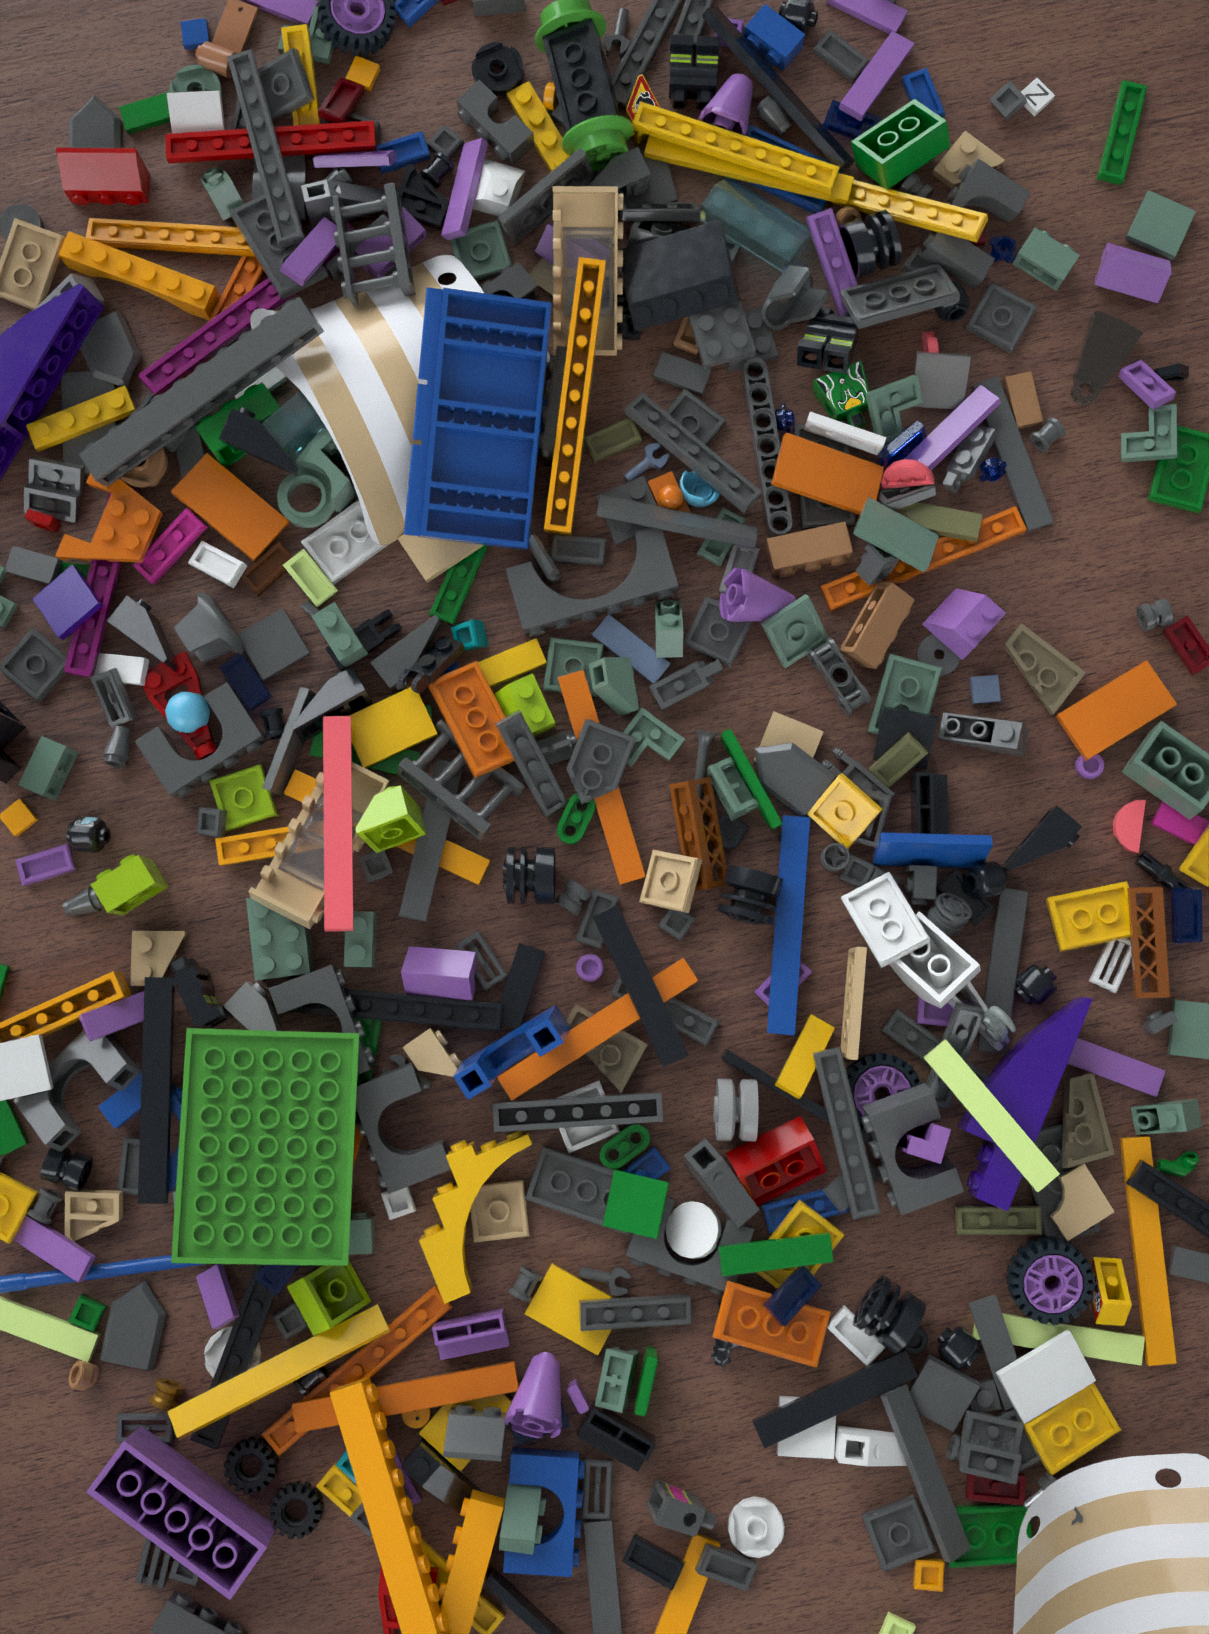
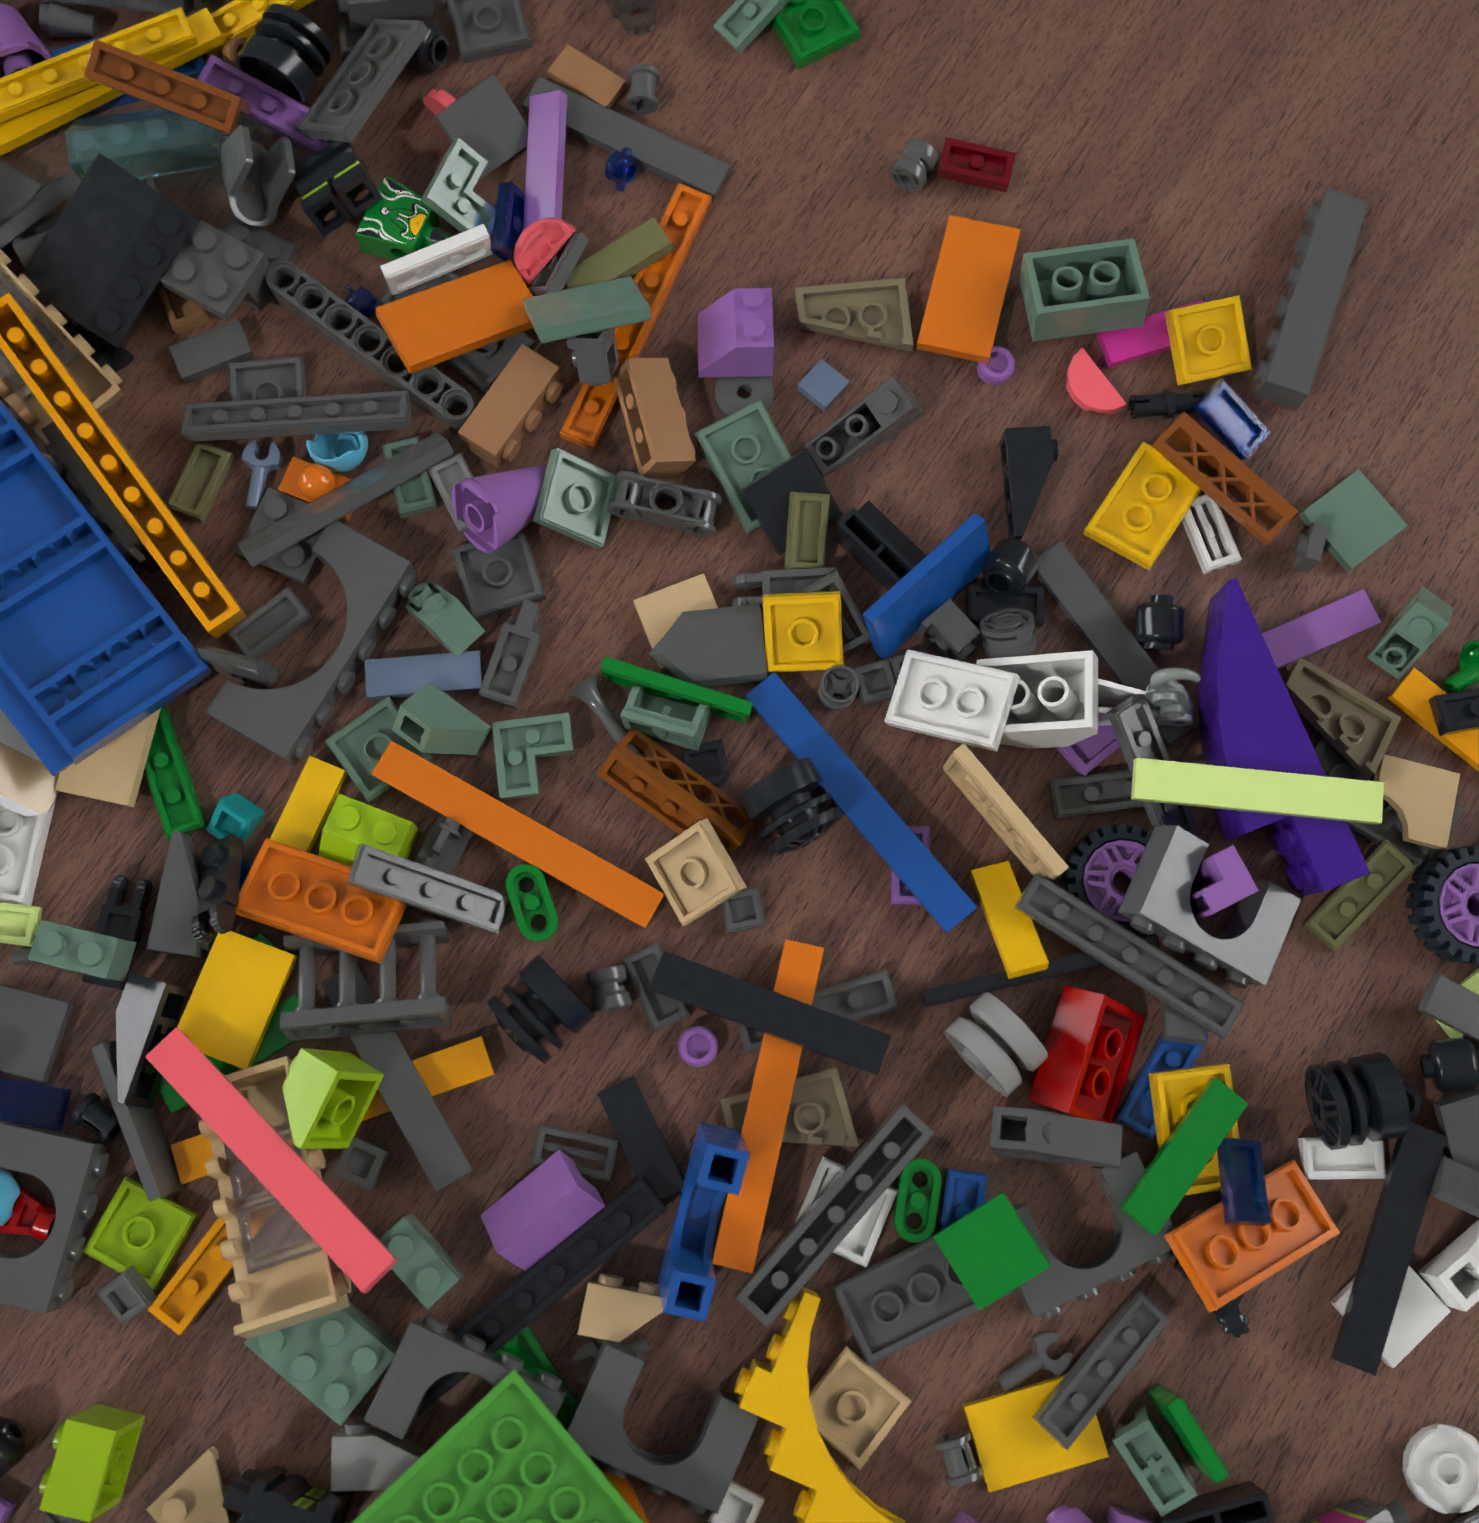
camera: 50 degrees left, 5 degrees down
(598, 760) = (497, 818): dark grey tile -> none
(693, 1230) = (1075, 1216): white tile -> none
(788, 210) = (164, 87): none -> dark orange fence
(968, 457) = (586, 176): dark grey hinge -> none

